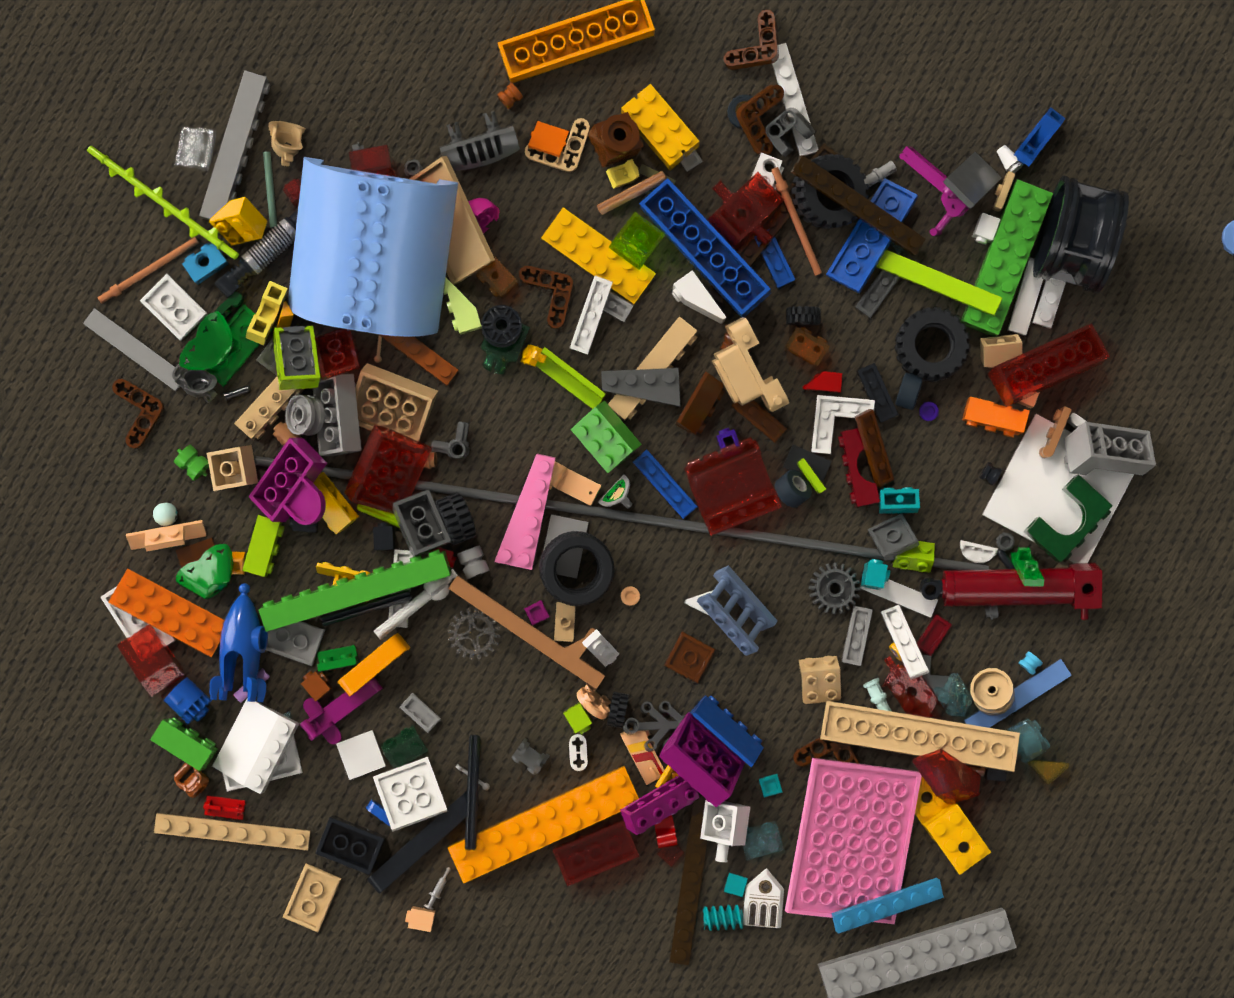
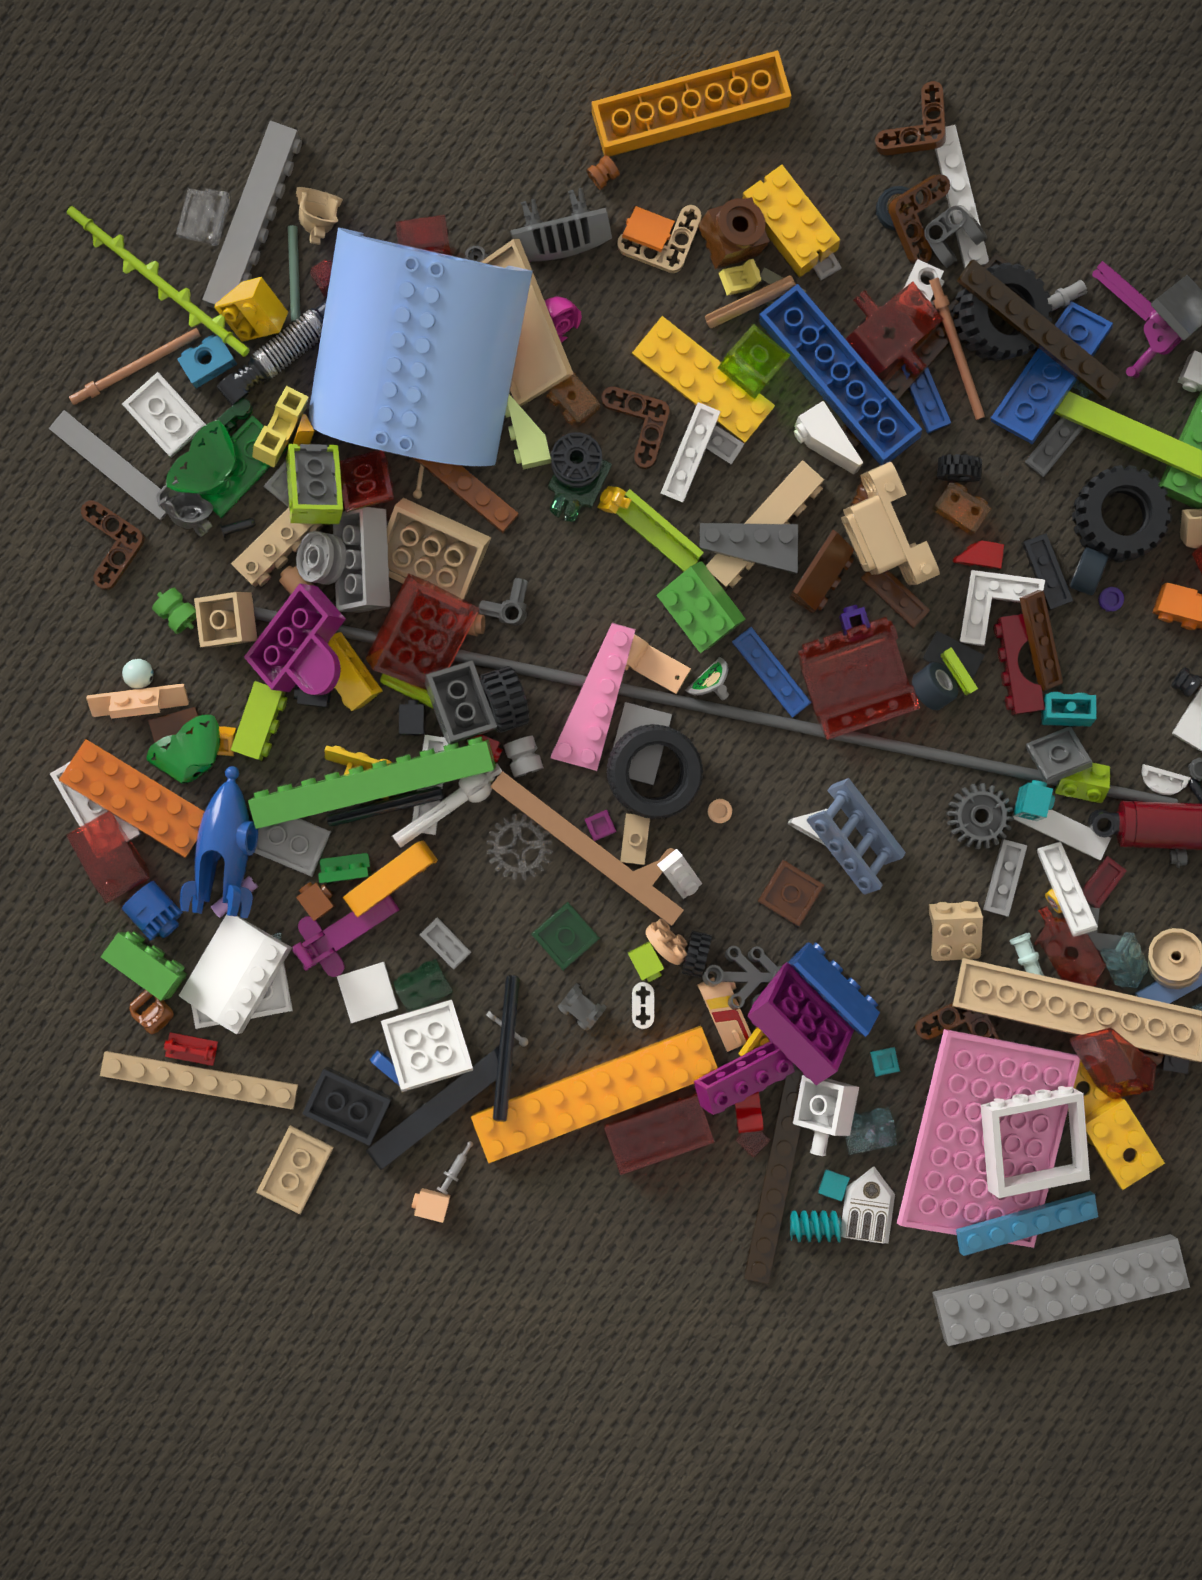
camera: 15 degrees right, 0 degrees up
(514, 701) = (565, 936): none -> dark green tile
(896, 870) = (1041, 1179): none -> white window

